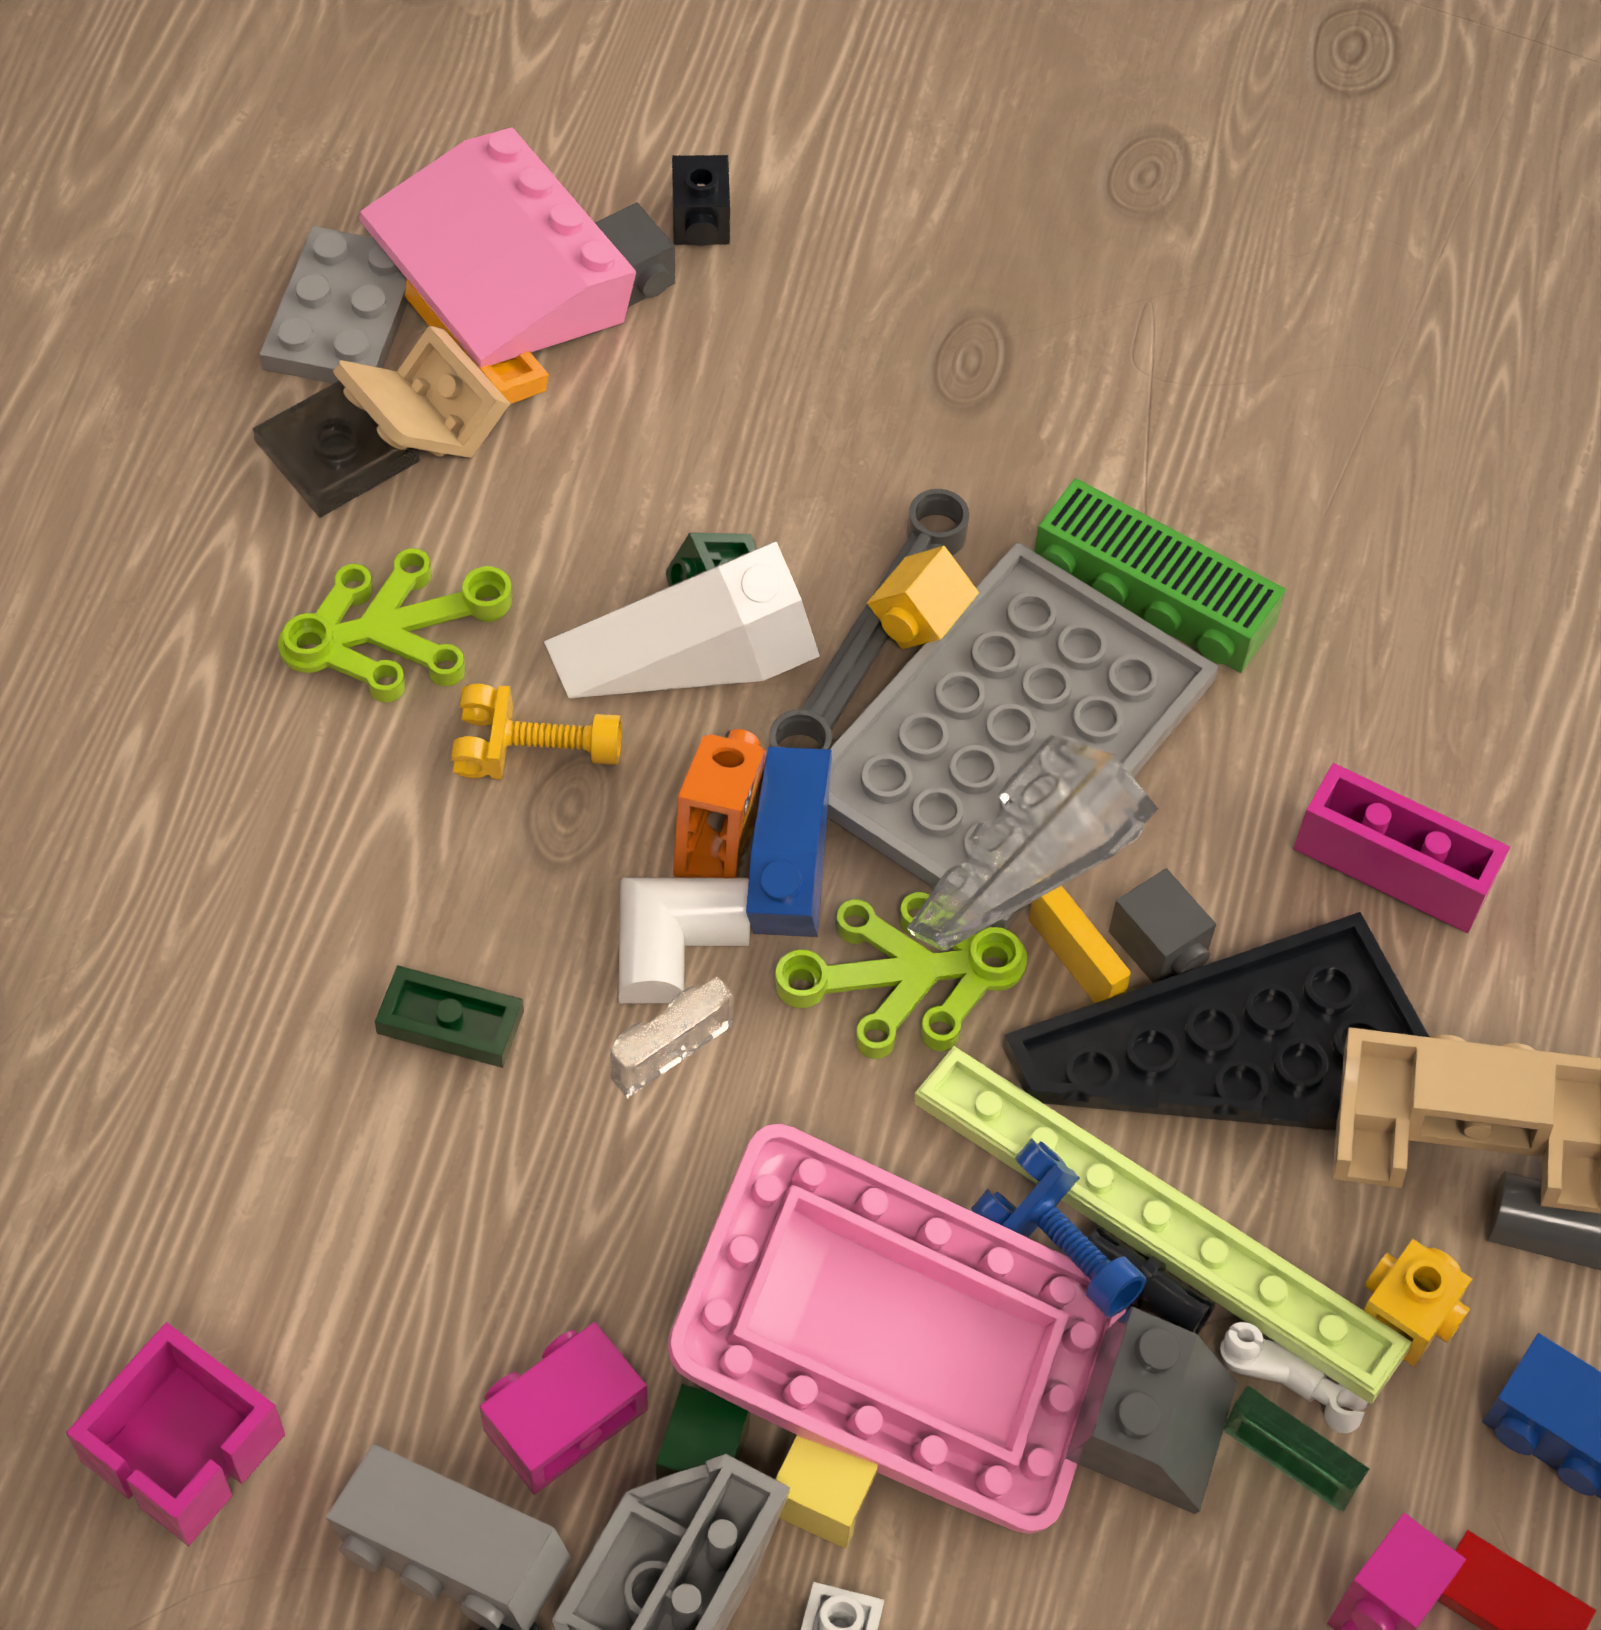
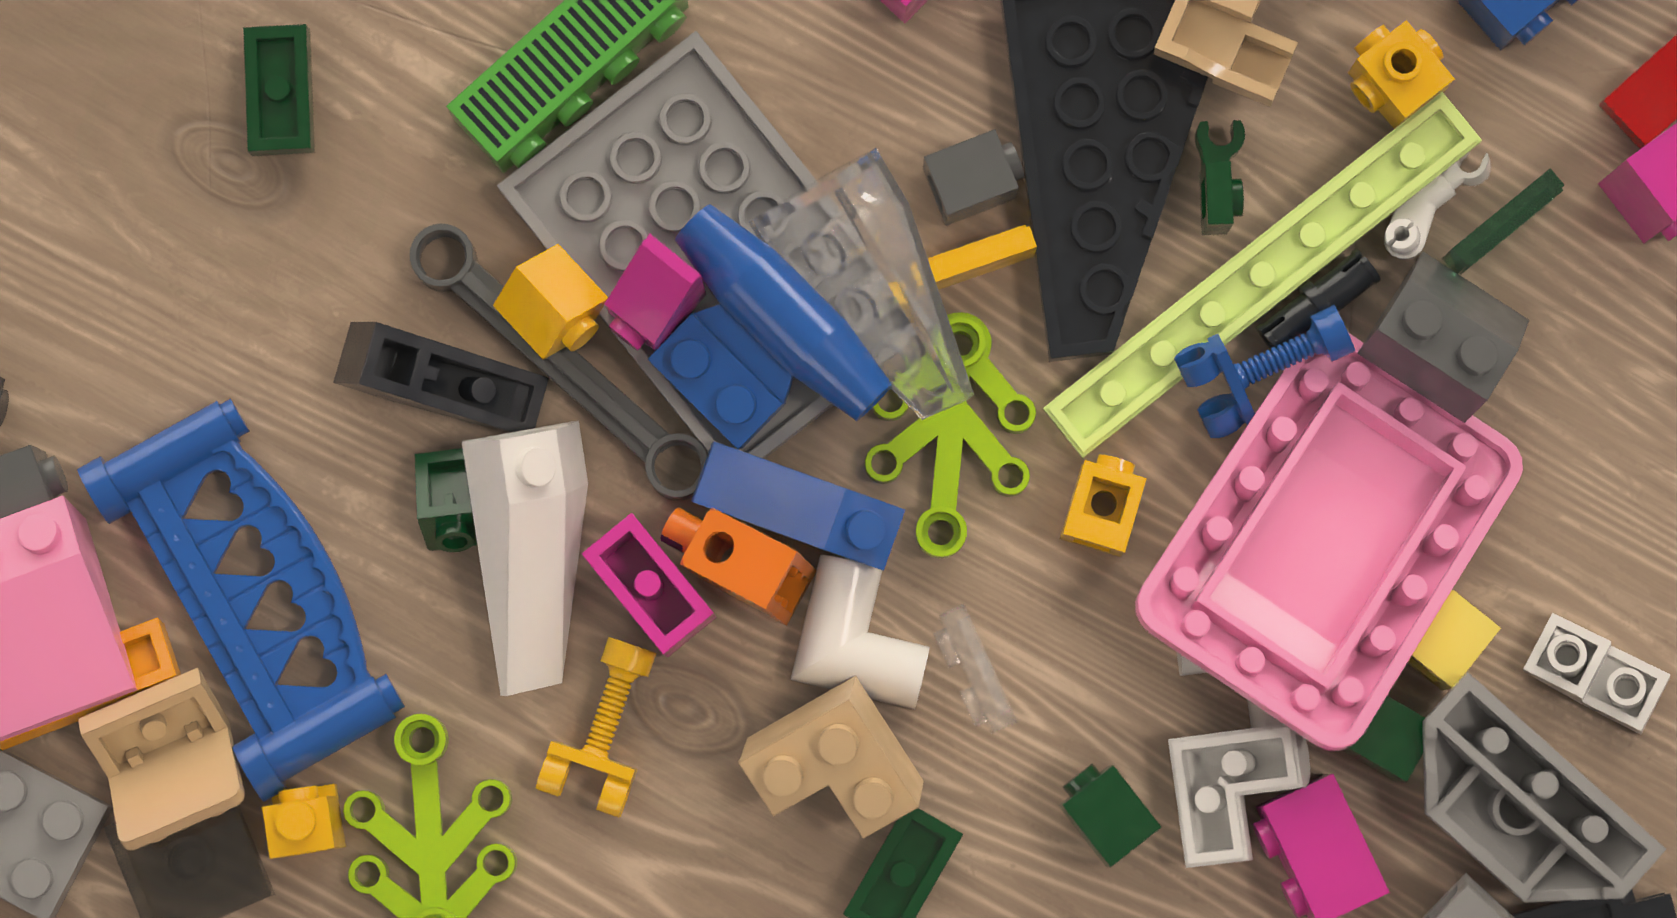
camera: 70 degrees left, 25 degrees up
(388, 514) = (304, 821): none -> yellow brick
(551, 1182) = (1107, 813): none -> dark green brick
(559, 921) = (837, 744): none -> tan brick
(609, 1282) = (1216, 773): none -> white brick
(664, 351) = (289, 722): none -> blue piece
(665, 732) = (649, 585): none -> dark pink brick
(826, 535) = (439, 378): none -> black slope
(866, 1096) = (1109, 532): none -> yellow brick
(943, 766) = (766, 330): none -> blue plate
(954, 661) = (653, 295): none -> dark pink slope
(1046, 371) = (278, 90): none -> dark green plate
(1230, 1155) = (1219, 194): none -> dark green plate

